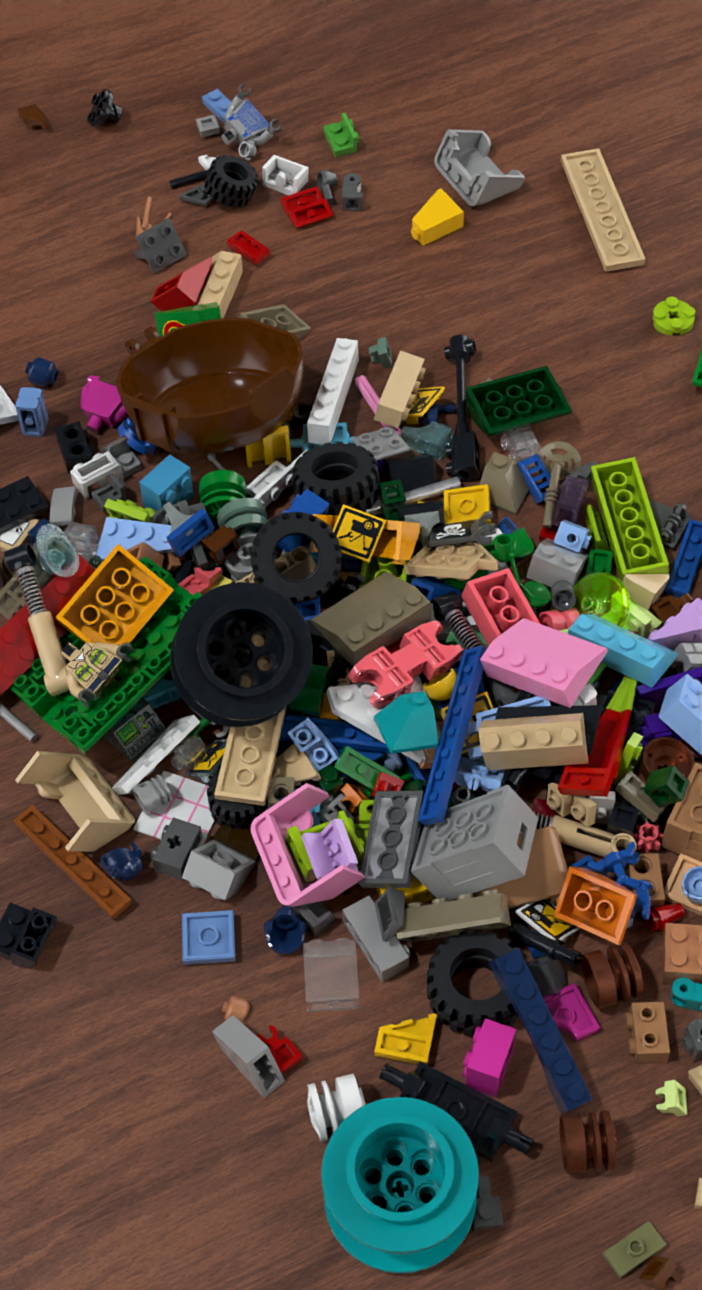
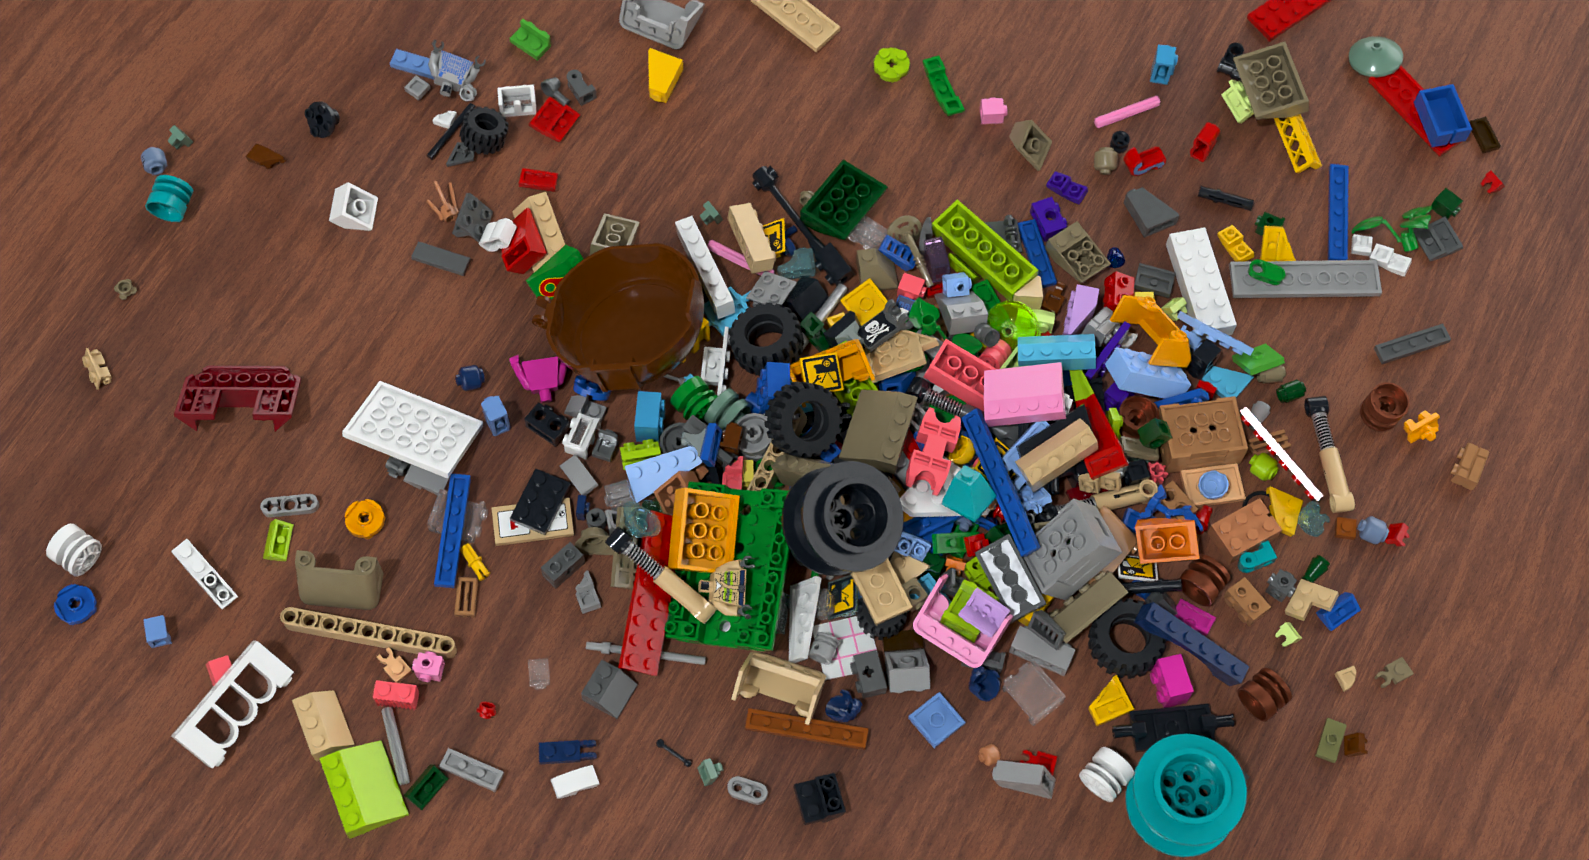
camera: 40 degrees left, 10 degrees up
(68, 189) = (353, 208): none -> white slope
(107, 267) = (441, 258): none -> dark grey tile
(168, 268) = (497, 235): none -> white brick
(526, 515) = (911, 287): none -> coral brick

